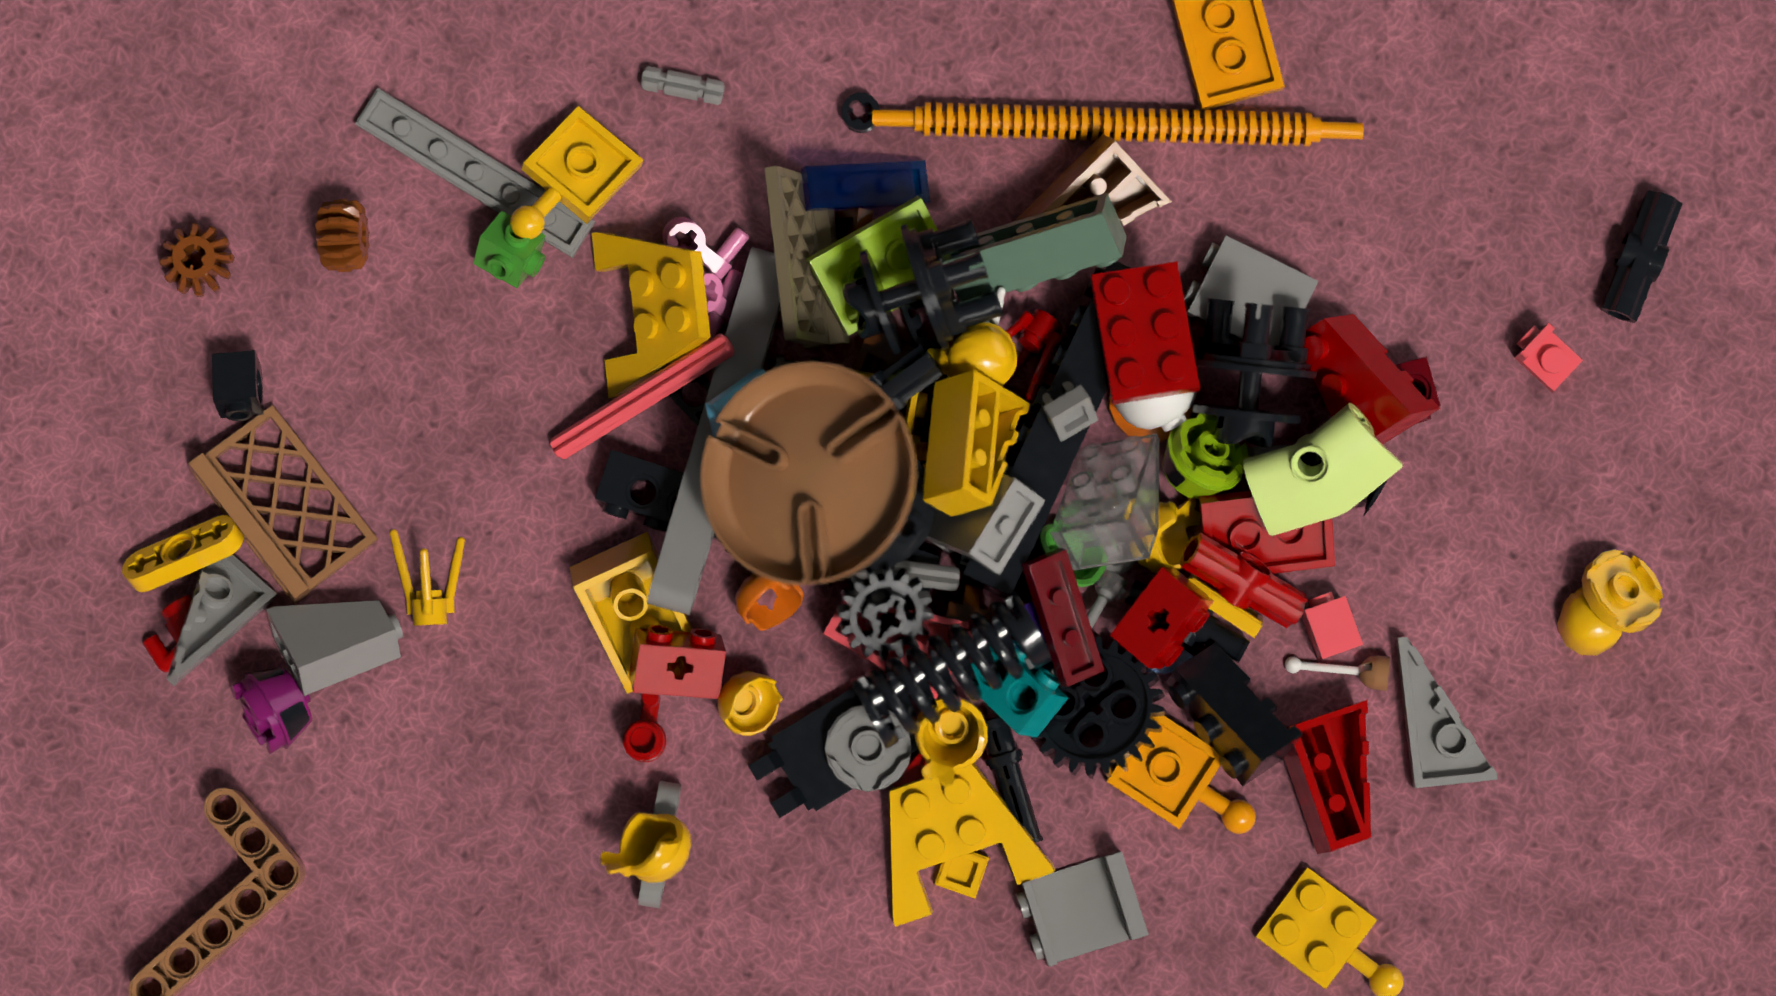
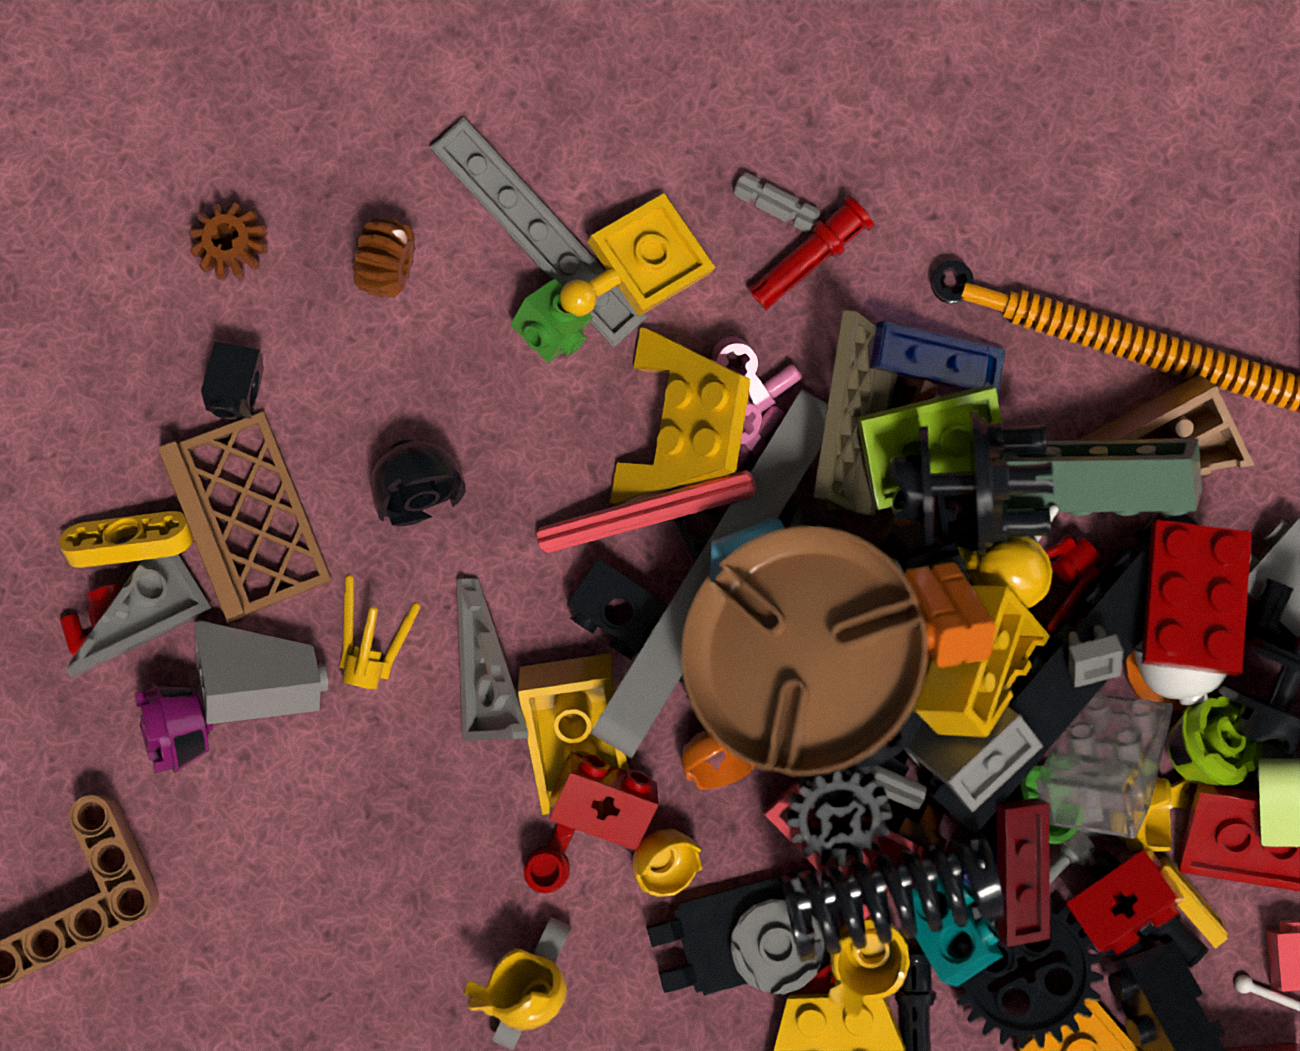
camera: 20 degrees right, 0 degrees up
(426, 426) = (414, 479): none -> black cylinder
(545, 595) = (487, 692): none -> light grey wing
(736, 107) = (826, 241): none -> red pin
(929, 408) = (953, 615): none -> orange brick
(1243, 580) = (1220, 883): red piece -> none

